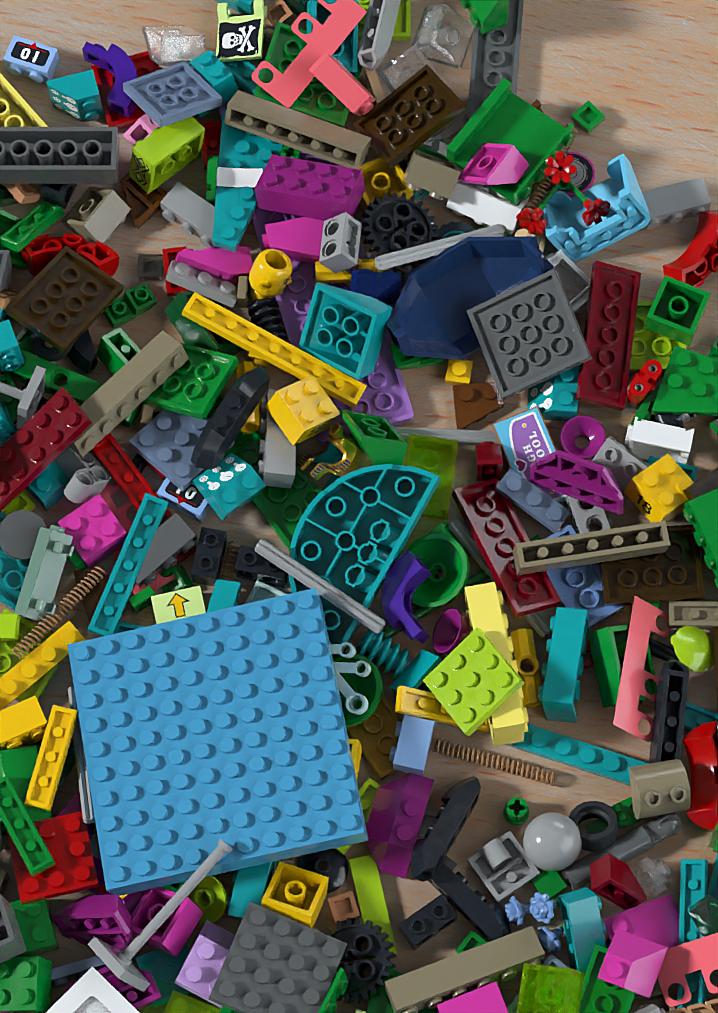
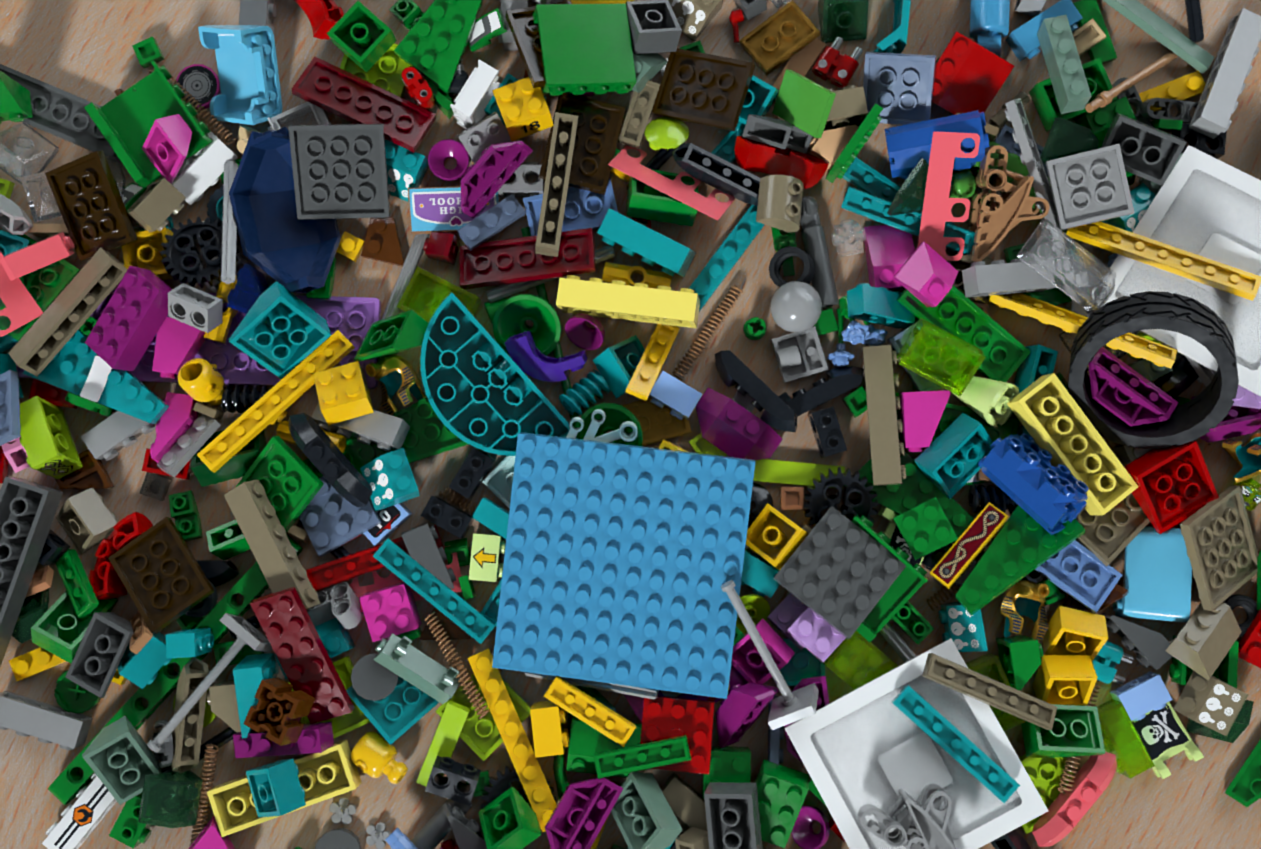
camera: 75 degrees left, 15 degrees up
(324, 588) = (512, 430): light grey axle -> none
(473, 681) = (645, 324): lime plate -> none
(560, 170) = (200, 89): red plant -> none
(616, 882) = (847, 266): dark red slope -> none

